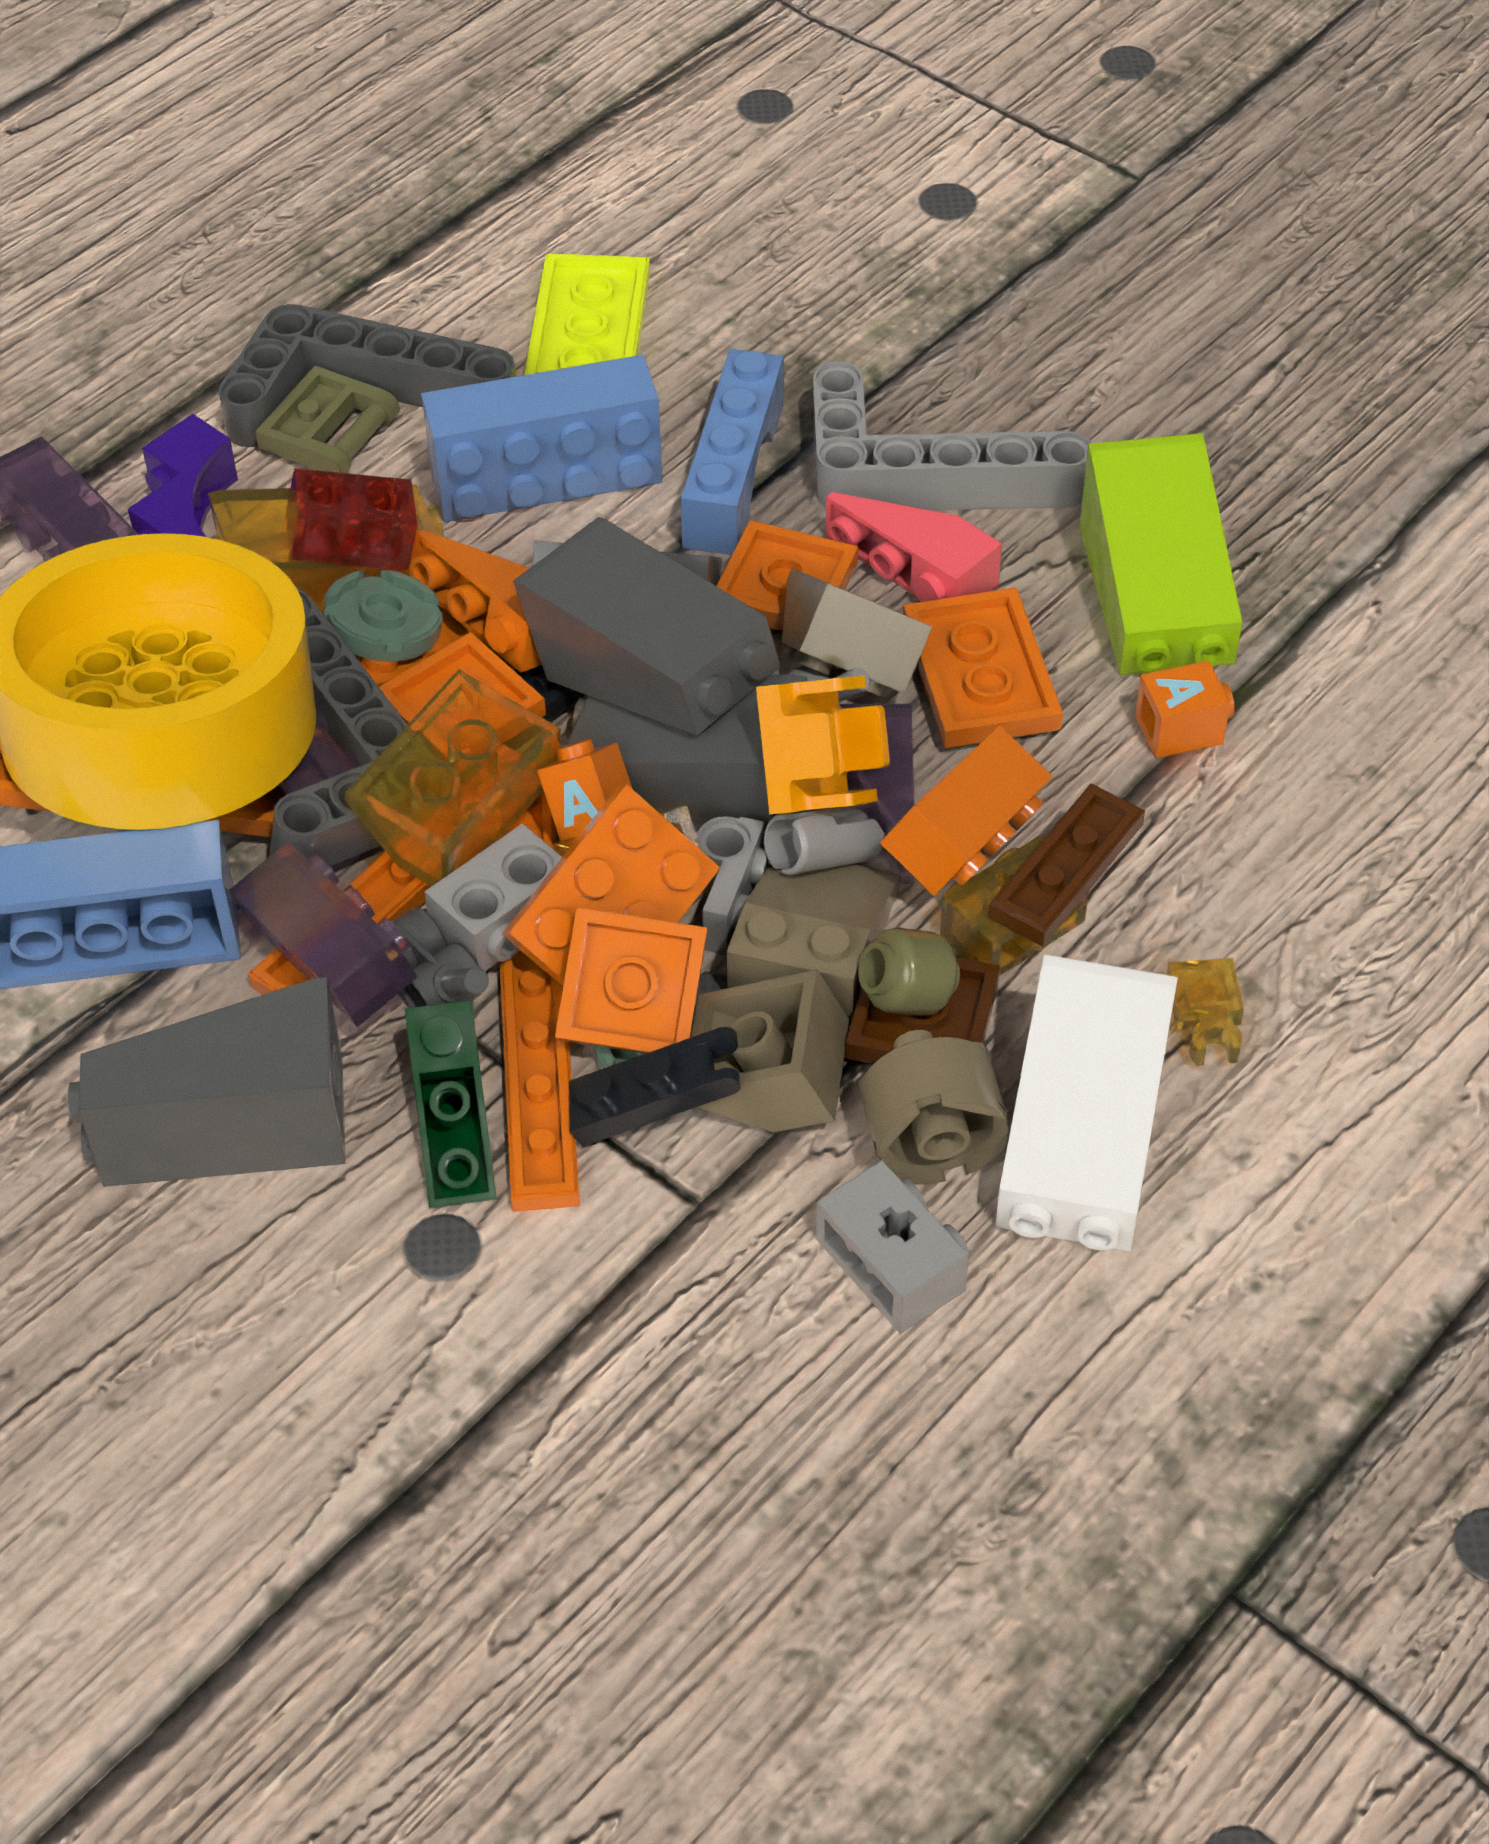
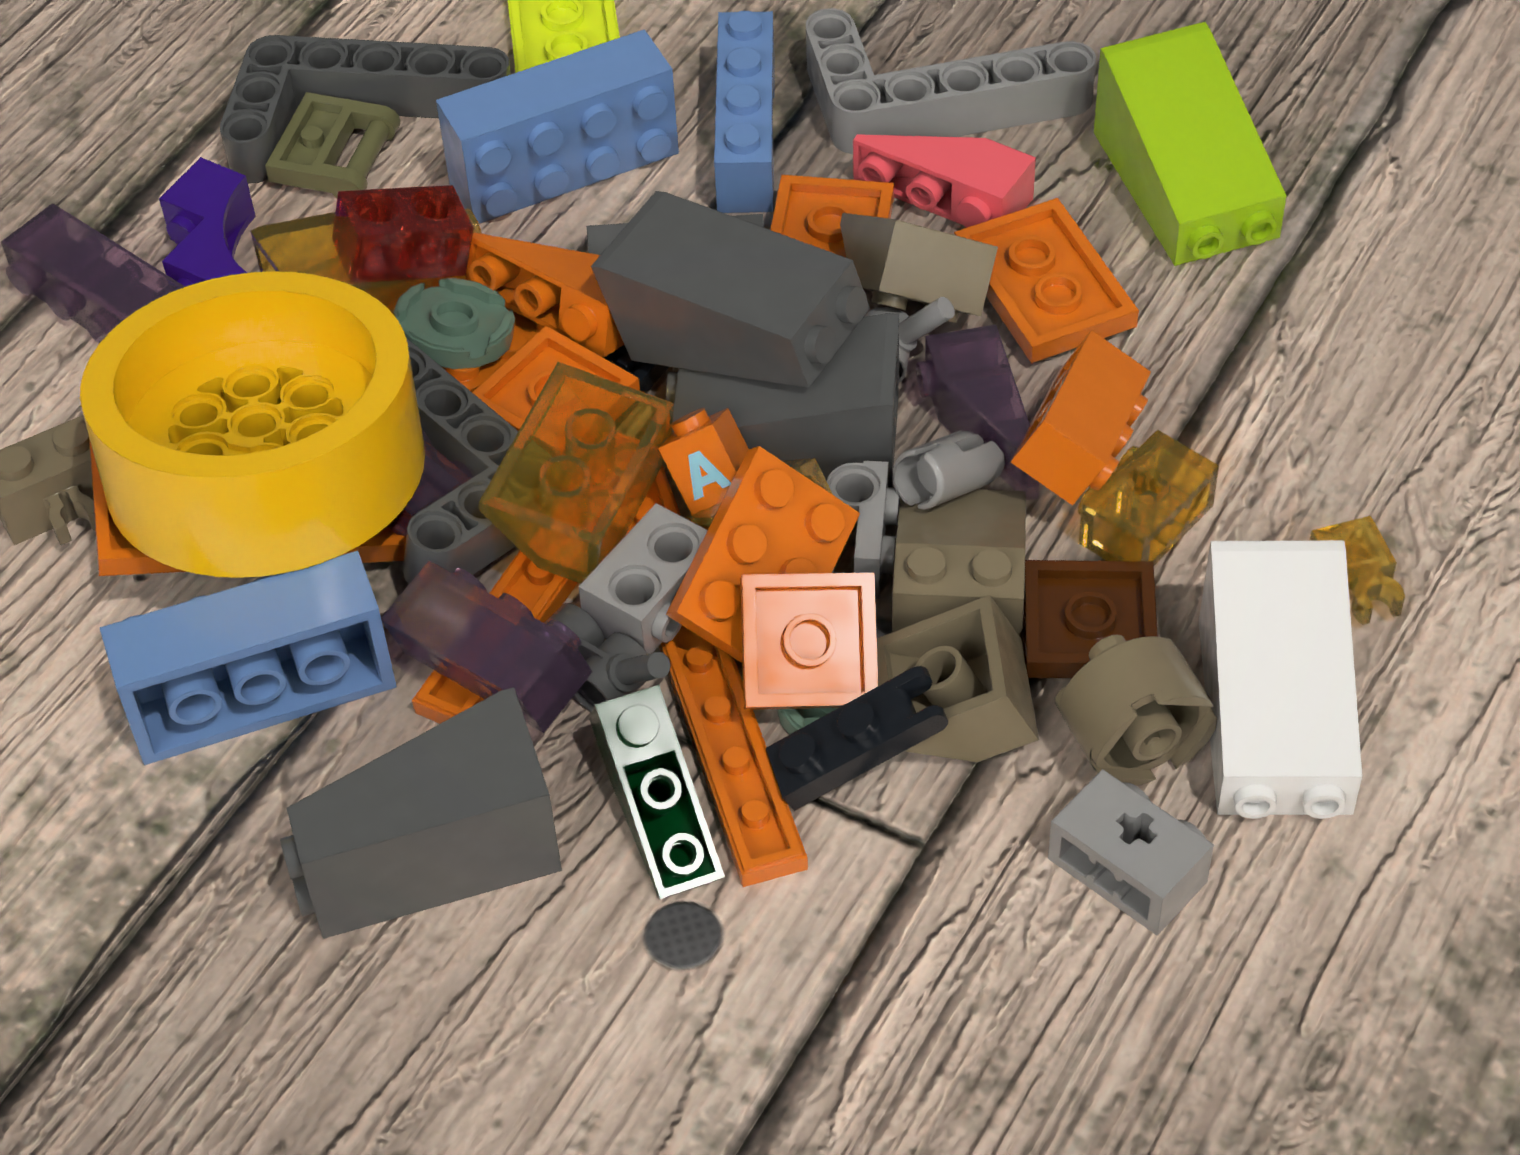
camera: 10 degrees left, 0 degrees up
(816, 742) = (930, 376): light orange panel -> none
(909, 972) = (1076, 581): olive head -> none
(1066, 865) = (1193, 453): reddish brown tile -> none
(1183, 709) = (1249, 287): orange brick -> none

